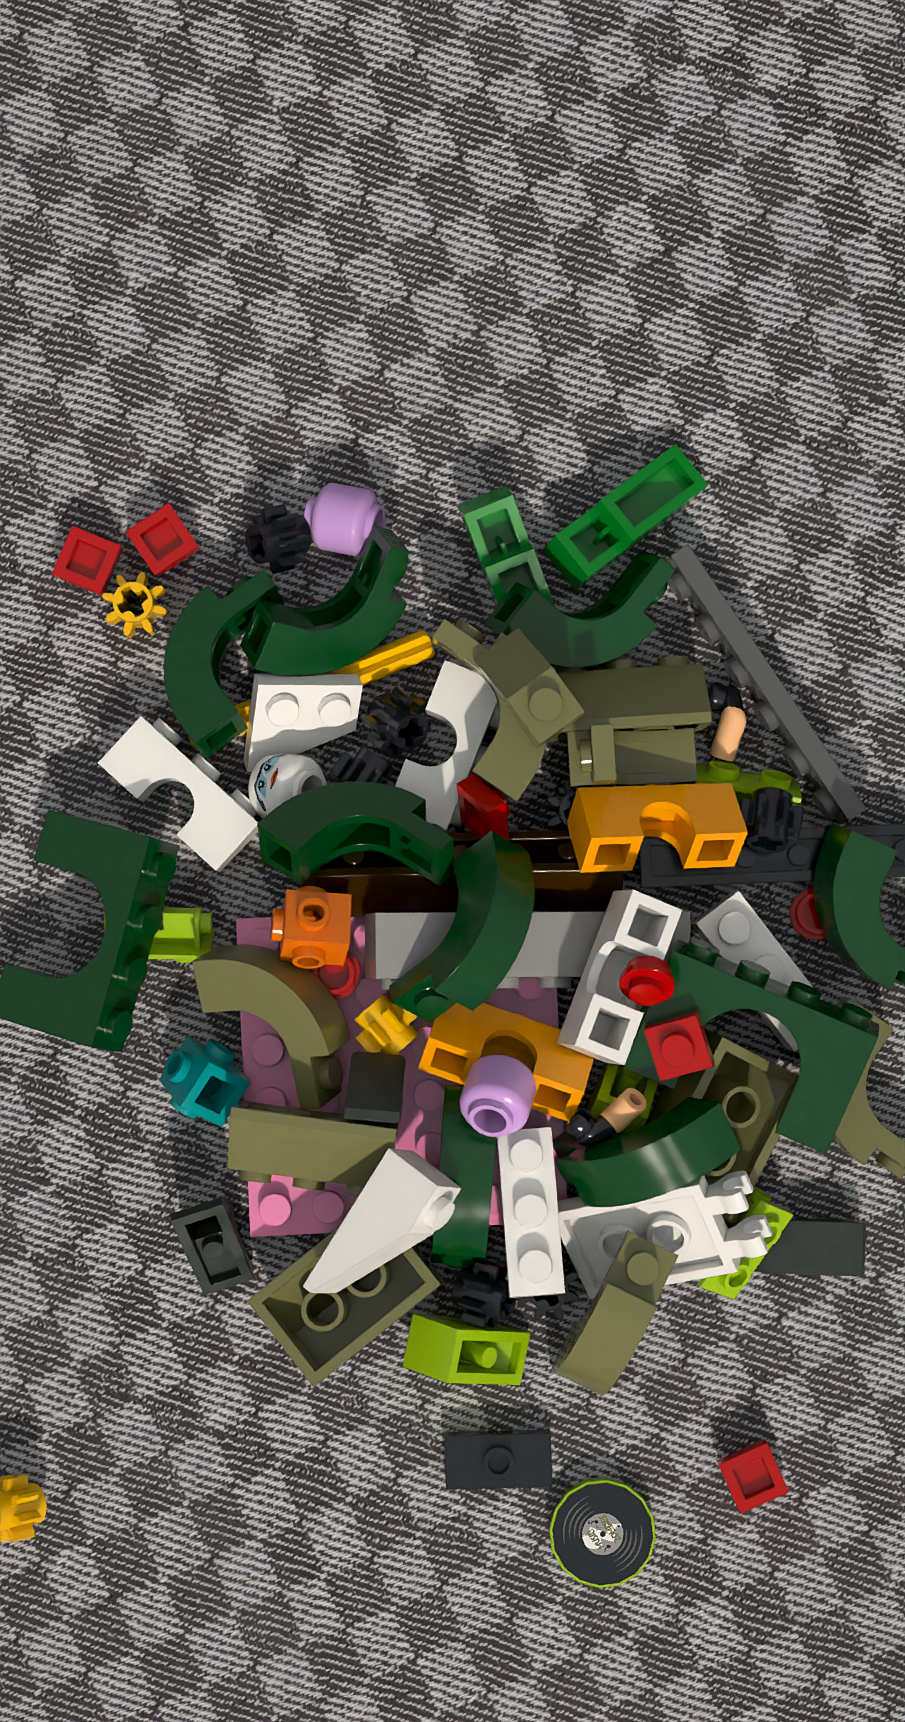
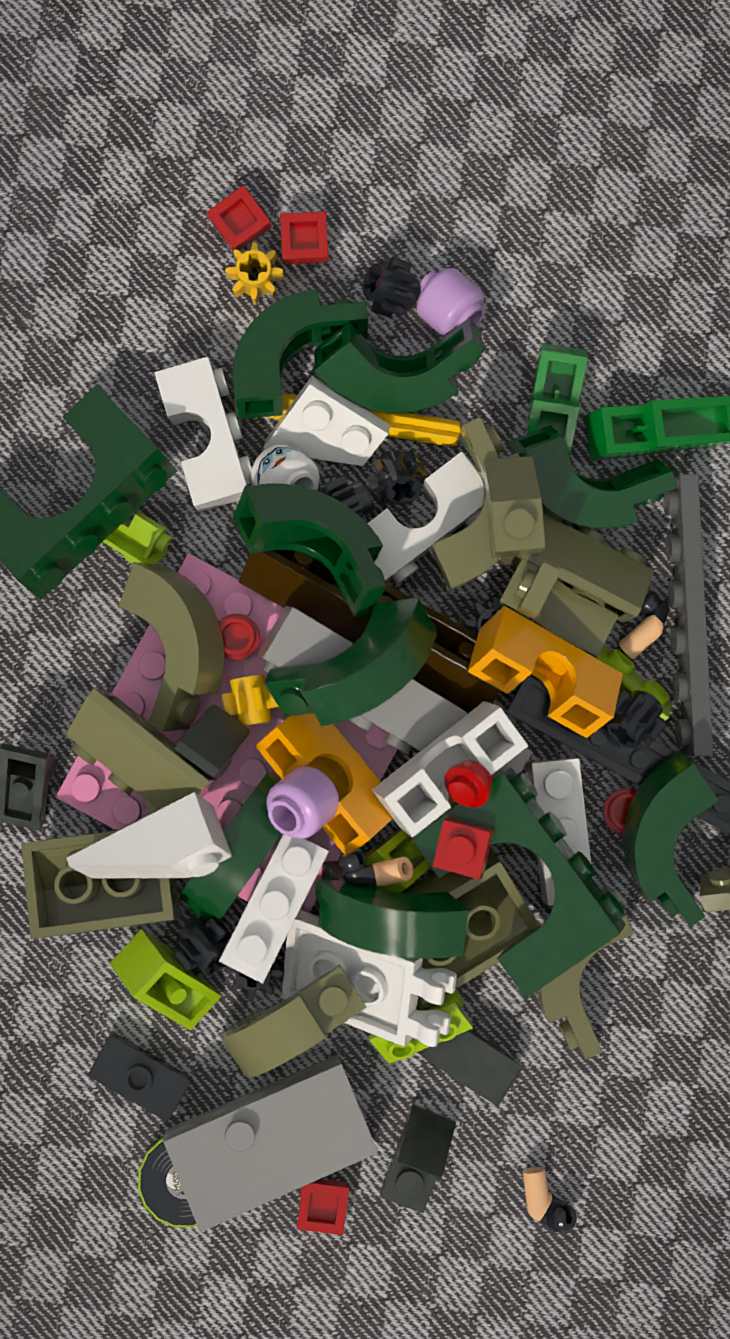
camera: 30 degrees right, 0 degrees up
(204, 1080) = (90, 658): teal brick -> none
(312, 927) = (239, 591): orange brick -> none
(482, 808) = (423, 578): red plate -> none
(663, 1444) = (268, 1143): none -> light grey brick
(817, 1374) = (418, 1159): none -> pearl dark grey slope

